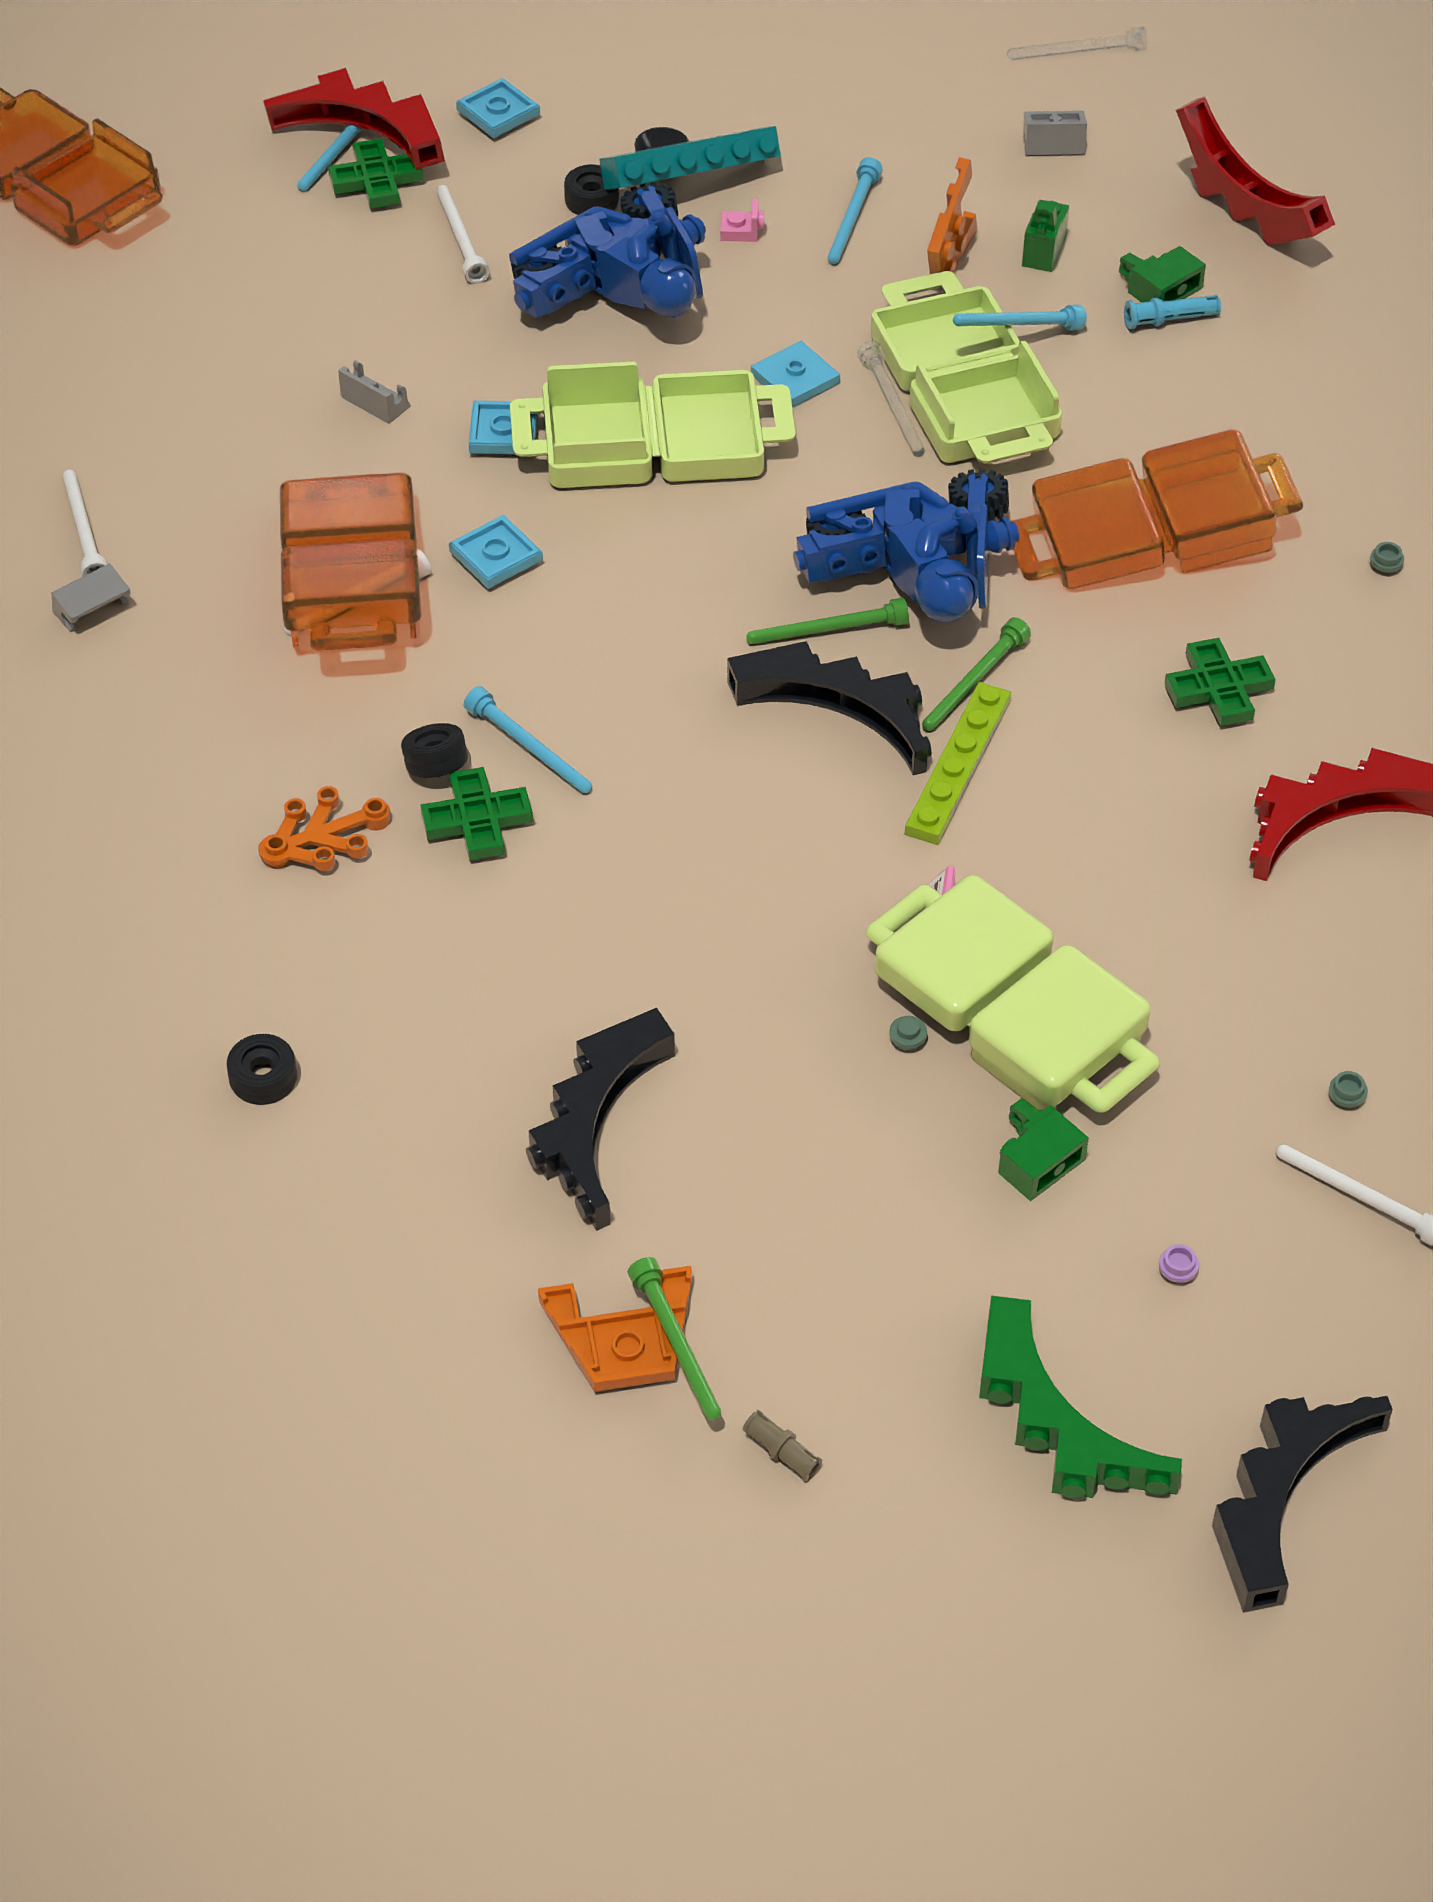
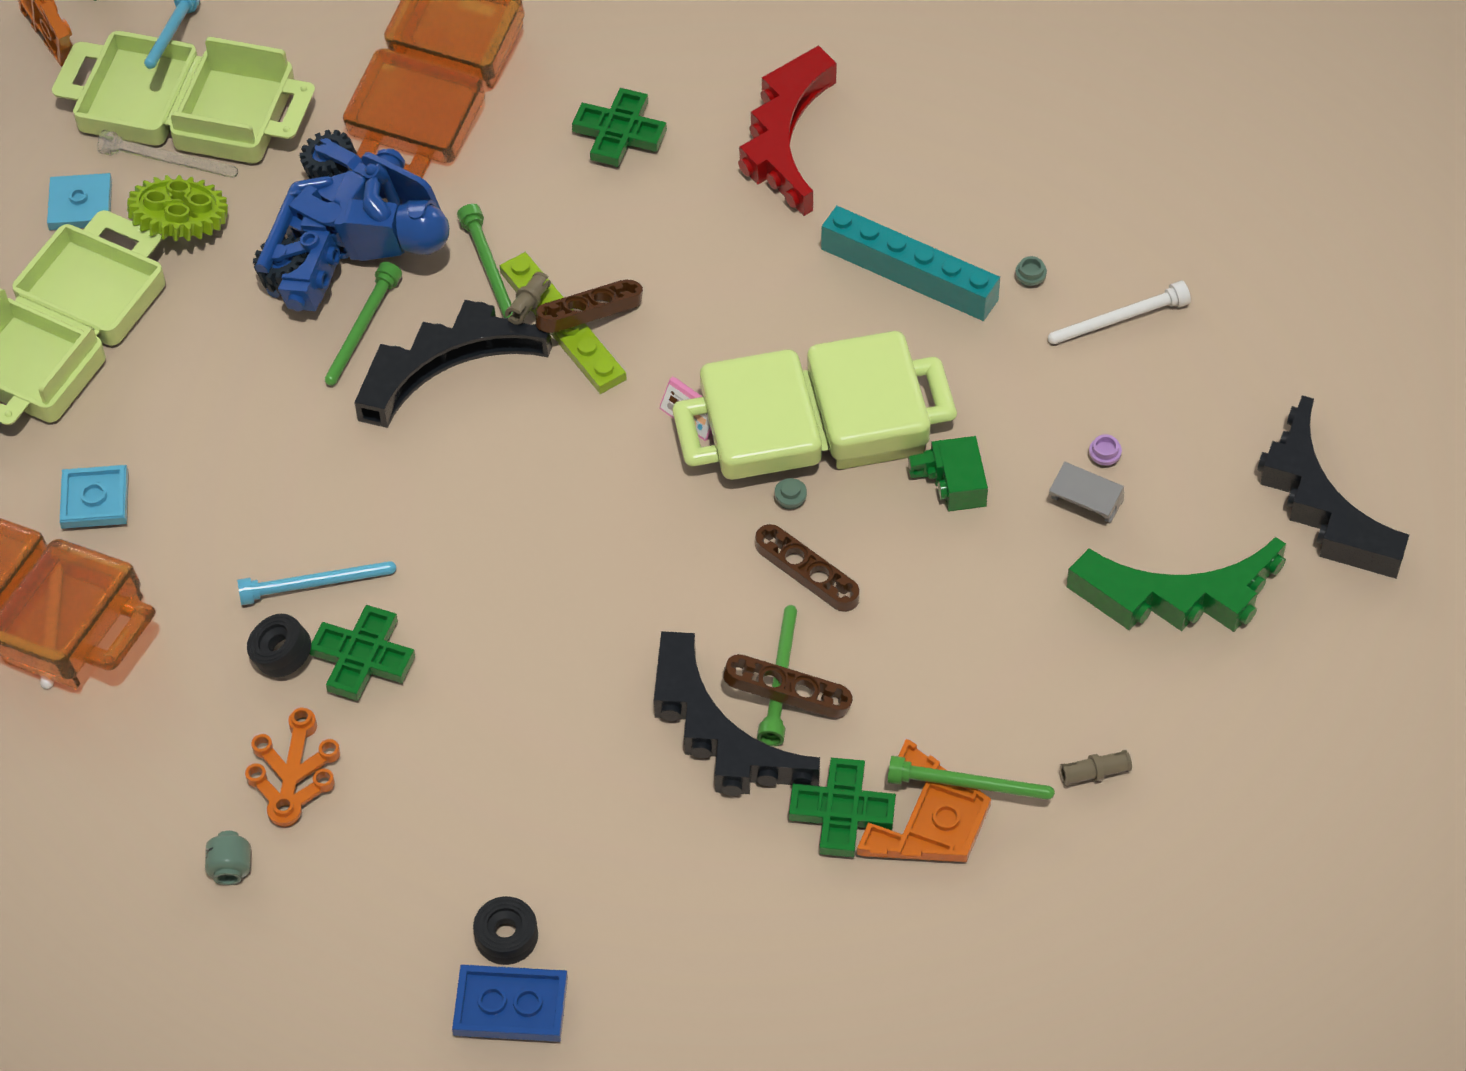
camera: 55 degrees left, 5 degrees up
(189, 1112) = (510, 1003): none -> blue plate
(197, 836) = (227, 858): none -> sand green head
(579, 1256) = (841, 807): none -> green plate
(626, 1155) = (771, 729): none -> bright green piece
(673, 1139) = (788, 681): none -> reddish brown beam
(815, 425) = (177, 208): none -> lime gear
(833, 1090) = (811, 563): none -> reddish brown beam
(946, 713) = (527, 298): none -> dark tan pin
(982, 768) = (558, 314): none -> reddish brown beam
(1107, 1272) = (1088, 491): none -> light grey hinge
(1261, 984) = (910, 263): none -> teal brick

